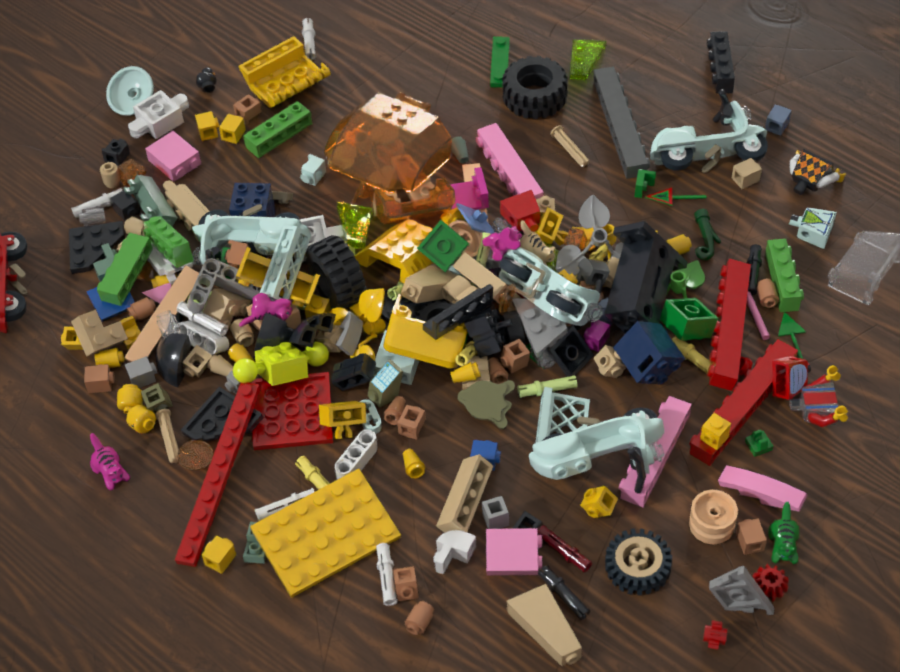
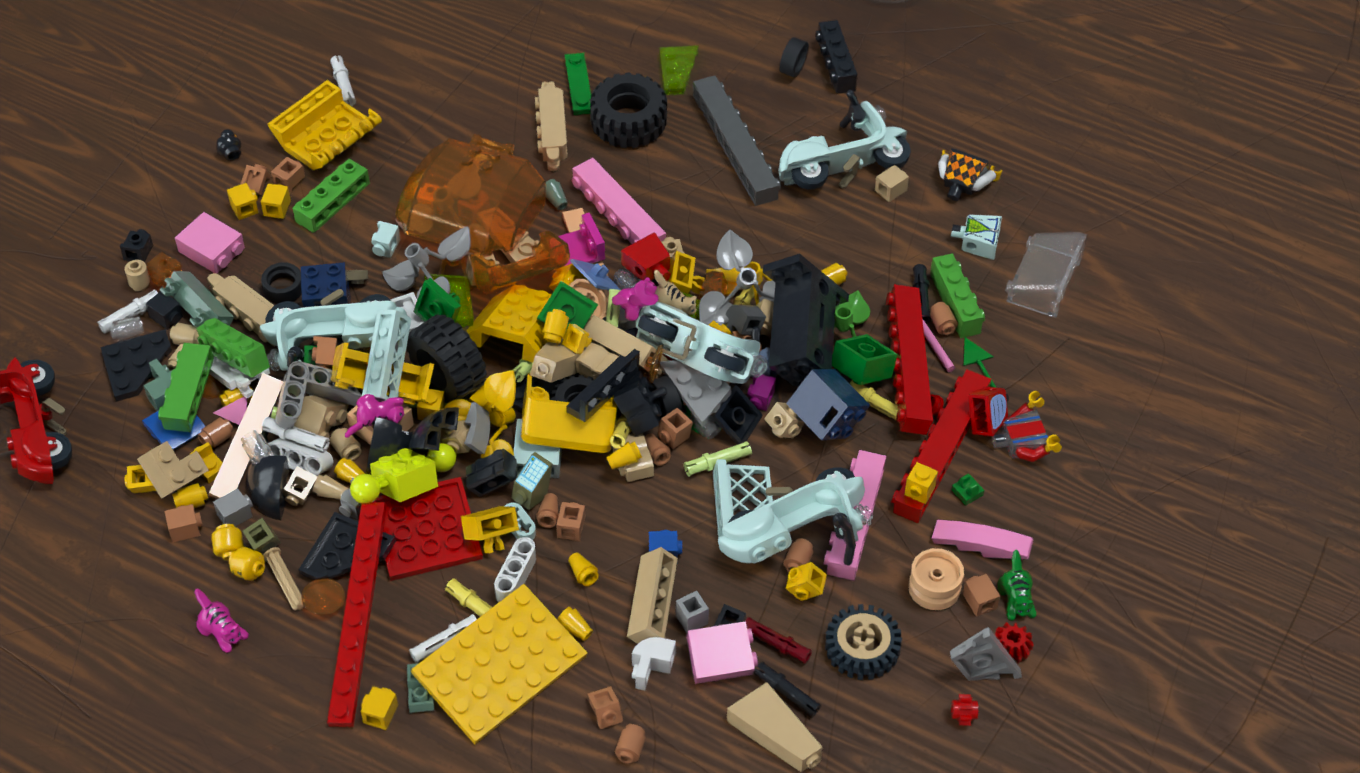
camera: 15 degrees left, 0 degrees up
(125, 85) = (130, 161): light aqua dish -> none
(158, 115) = (179, 194): white brick -> none
(216, 187) = (277, 271): none -> black tyre
(221, 108) = (255, 177): none -> nougat bracket
(321, 200) = (403, 275): none -> light grey plant
(336, 224) = (436, 301): none -> green tile
(385, 566) = (577, 691): white pin -> none
(395, 508) = (575, 624): none -> yellow cone
(429, 257) = (555, 326): none -> yellow brick
(446, 270) = (576, 339): none -> yellow tile
(469, 93) = (552, 125): none -> tan hinge
(487, 401) = (653, 485): olive tile -> none
(569, 145) = (683, 175): tan axle -> none
(598, 477) = (798, 554): none -> nougat brick
(644, 179) = (777, 204): green bracket -> none
(666, 196) = (805, 220): green piece -> none
(684, 58) = (794, 57): none -> black tyre
(702, 219) = (853, 243): dark green plant -> none
(778, 120) = (914, 117): sand blue brick -> none

